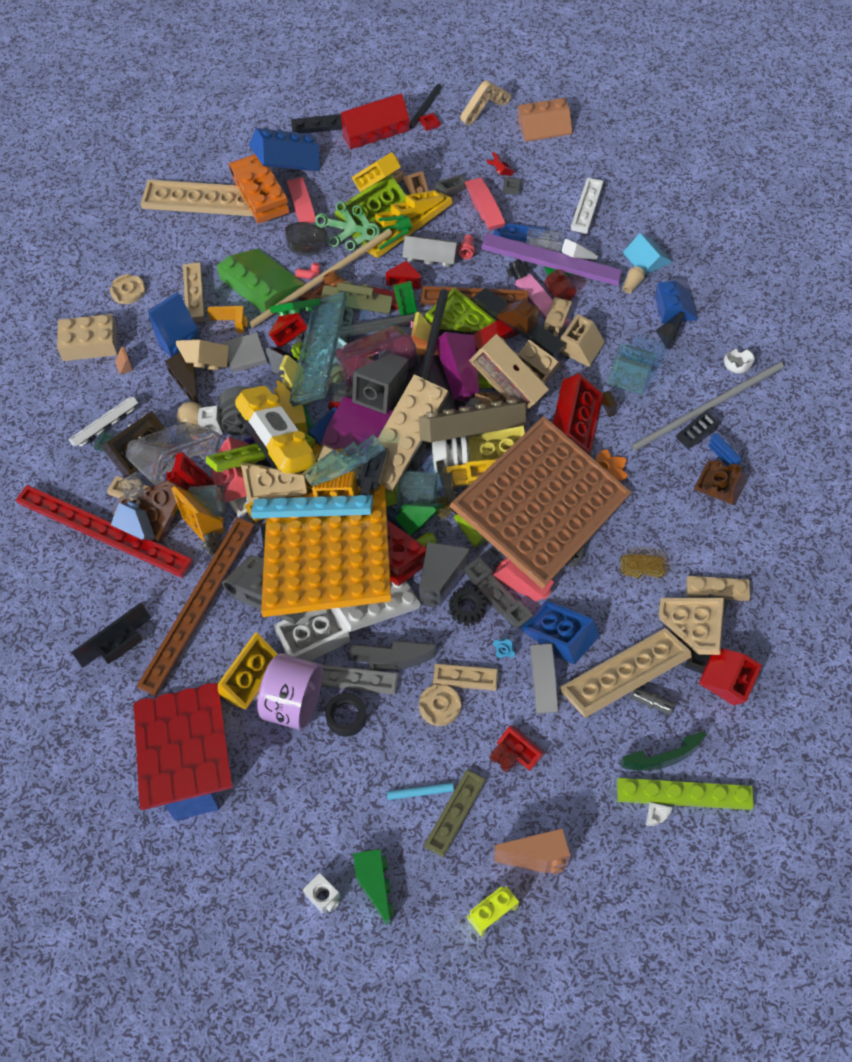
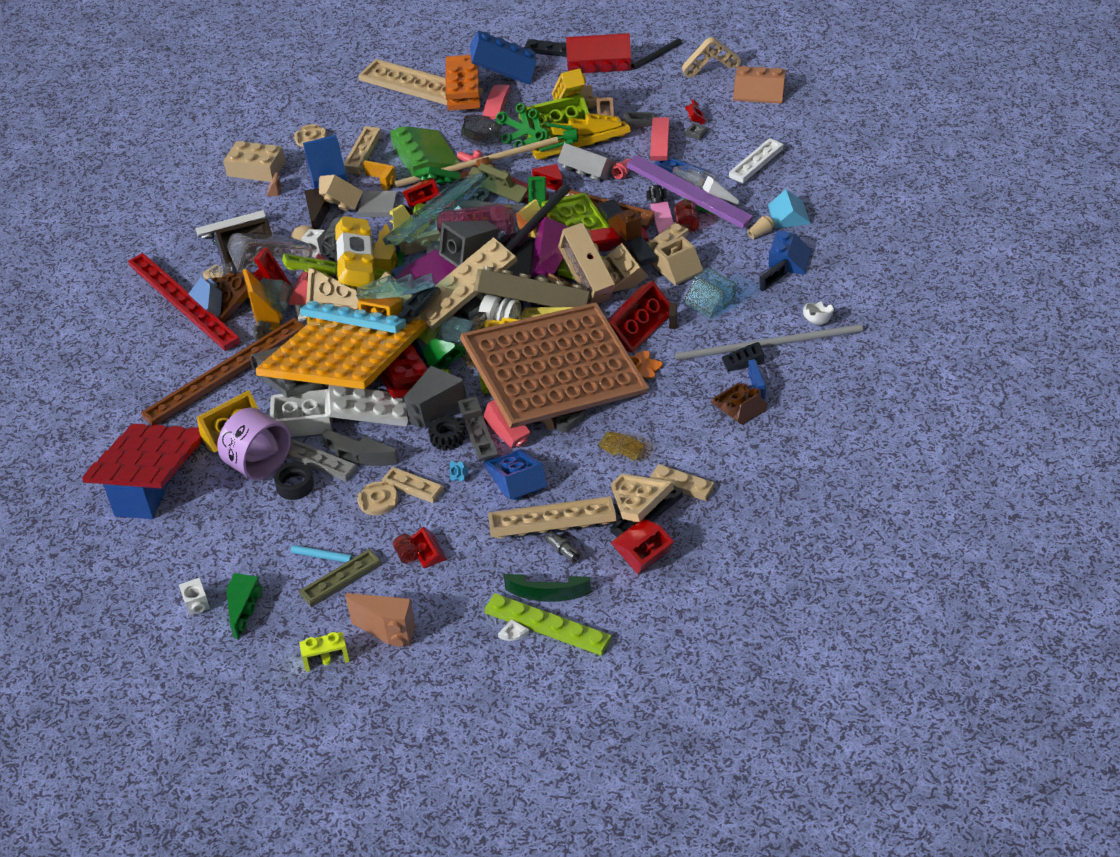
camera: 25 degrees right, 15 degrees down
(114, 638) = (144, 375): black bracket -> none
(429, 121) = (653, 66): red tile -> none
(543, 678) = (477, 501): light grey slope -> none

